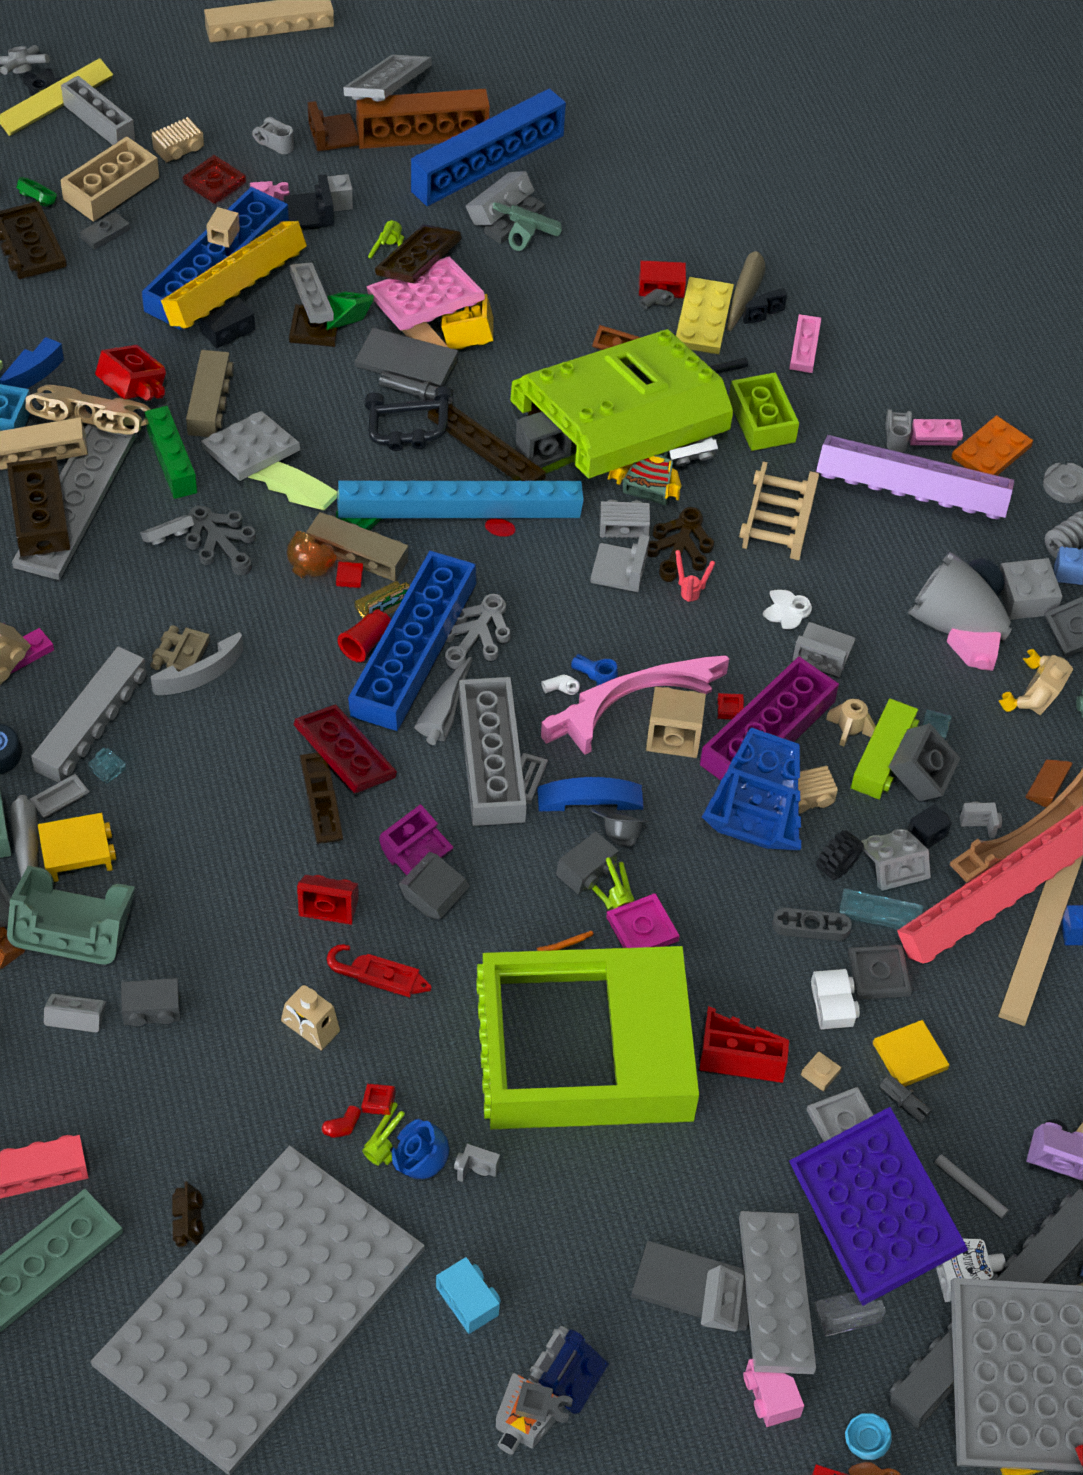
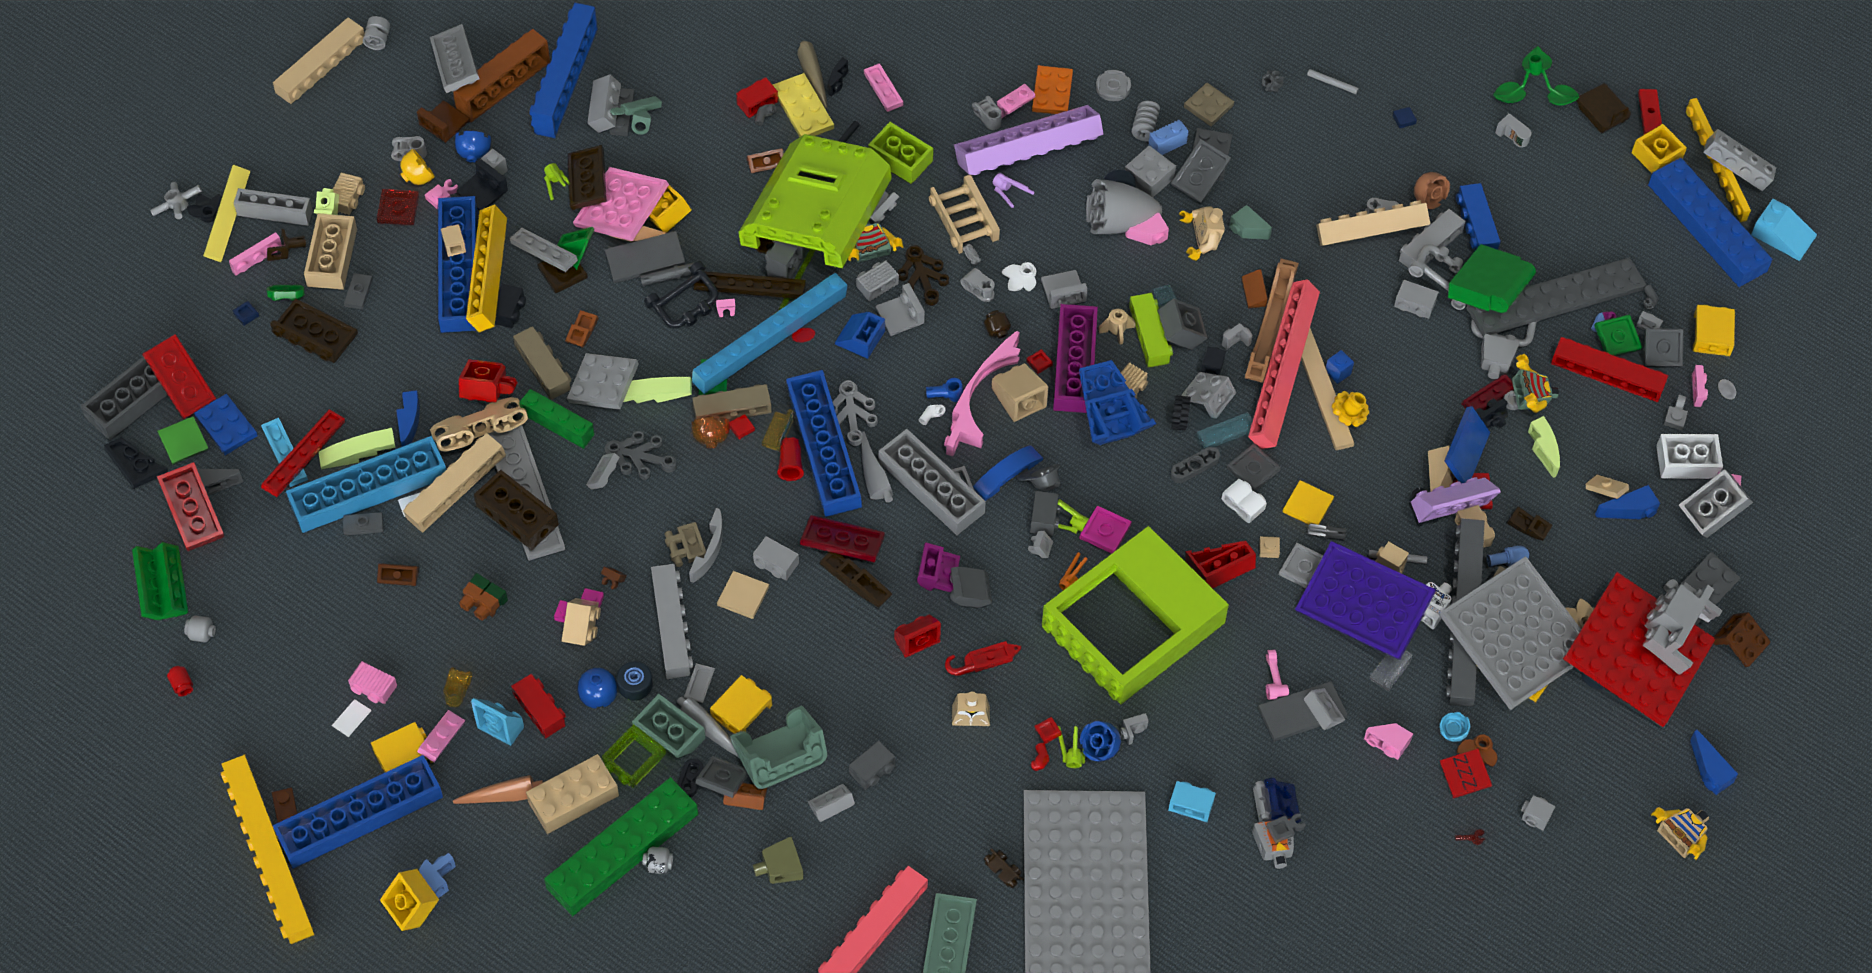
camera: 35 degrees left, 5 degrees up
(43, 144) = (254, 254): none -> bright pink plate
(78, 633) = (613, 575): none -> reddish brown tile
(79, 152) = (287, 243): none -> dark brown bracket
(106, 765) = (709, 645): clear light blue tile -> none
(146, 133) = (331, 206): none -> yellowish green brick
(190, 738) = (743, 595): none -> tan tile
(256, 723) = (775, 558): none -> light grey brick
(262, 153) = (415, 169): none -> yellow cylinder
(280, 389) = (582, 329): none -> dark orange slope
(334, 160) = (472, 145): none -> blue cylinder
(343, 22) = (376, 33): none -> light grey wheel
(441, 447) = (728, 304): none -> bright pink tile
(555, 894) = (1042, 544): none -> light grey tile
(559, 561) = (862, 333): none -> blue slope
(687, 1237) = (1277, 689): none -> bright pink brick
(691, 585) = (954, 298): coral plant -> none
(715, 638) = (997, 324): none -> dark brown head
(731, 589) = (979, 285): none -> light grey piece
(752, 555) = (971, 254): none -> light grey piece
(776, 1293) = (1349, 684): light grey plate -> none
(853, 506) = (1004, 183): none -> lavender plant
(952, 1181) = (1392, 557): none -> tan brick
(1053, 980) = (1351, 408): none -> yellow plant

